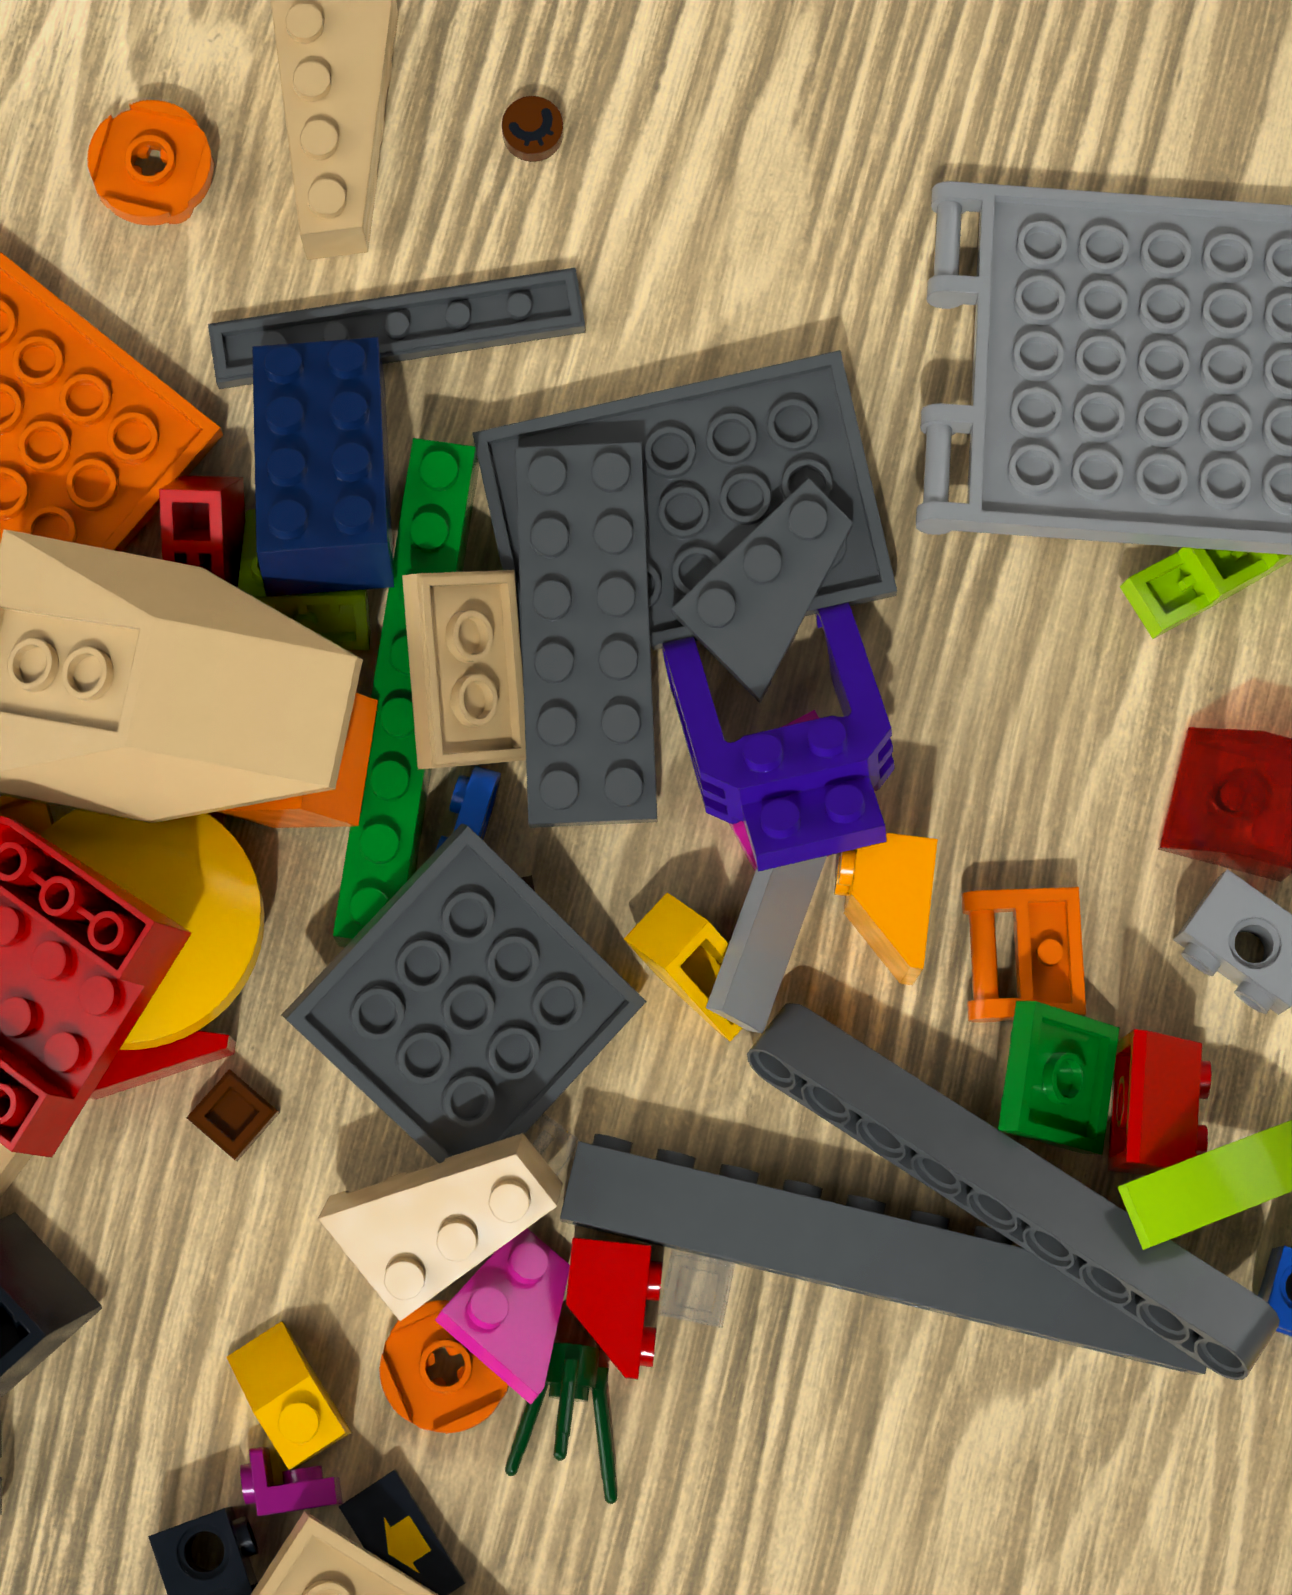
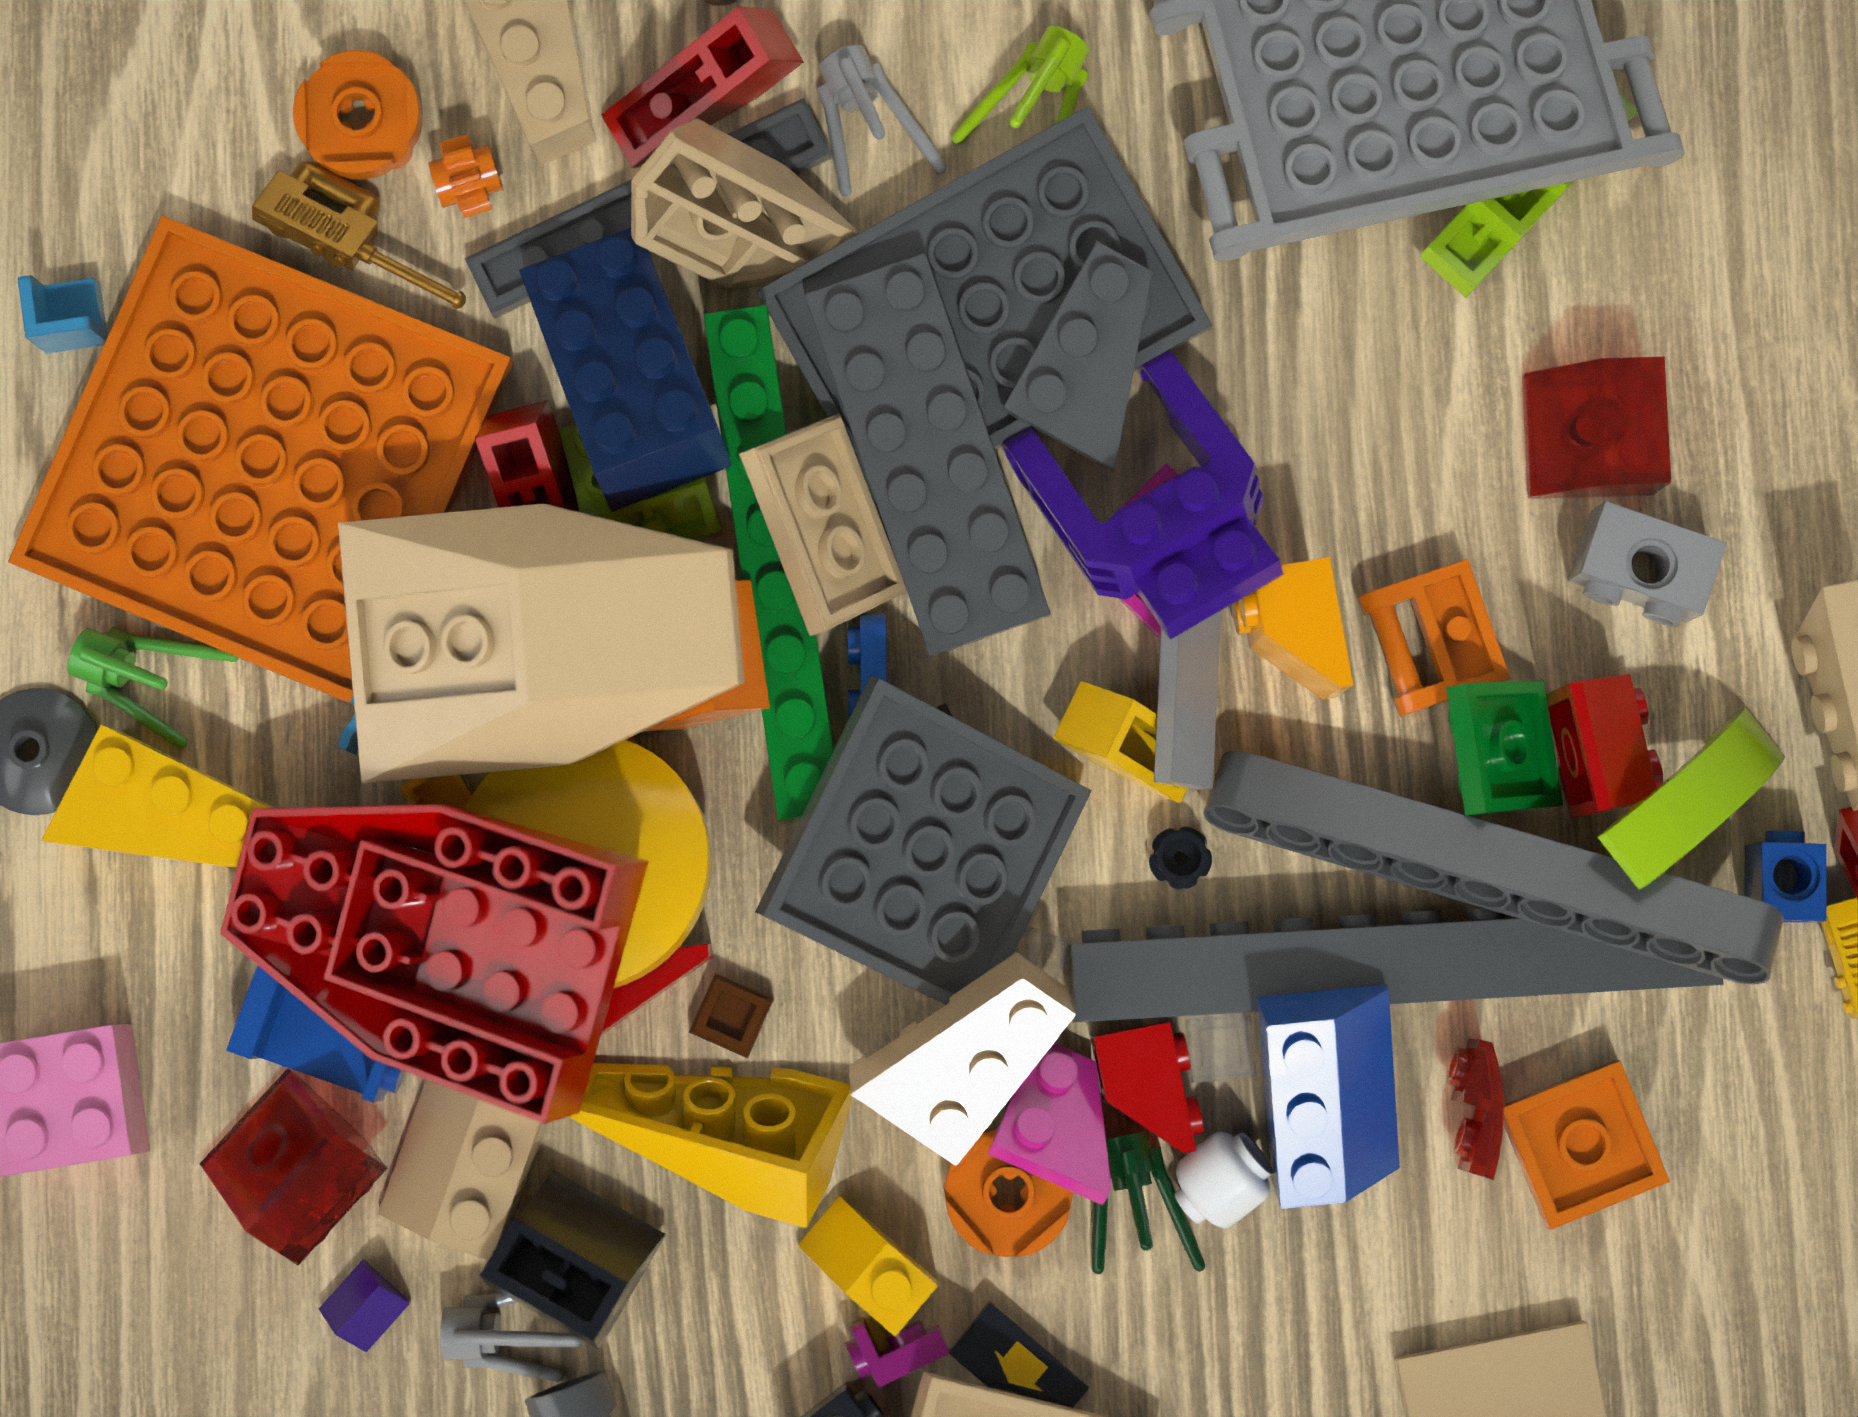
camera: 20 degrees left, 5 degrees up
(96, 271) = (338, 237): none -> pearl gold piece
(204, 1236) = (739, 1137): none -> yellow wedge
(232, 247) = (465, 175): none -> orange gear
(466, 346) = (729, 210): none -> tan wedge
(484, 226) = (704, 81): none -> red slope
(626, 268) = (853, 84): none -> light grey plant
(658, 1418) = (1223, 1179): none -> white head
(710, 1075) = (1197, 857): none -> black plate
(786, 1362) = (1328, 1093): none -> blue slope
(818, 304) = (1052, 64): none -> lime plant
(936, 1404) = (1478, 1084): none -> clear red slope
(1023, 1492) = (1583, 1144): none -> orange plate

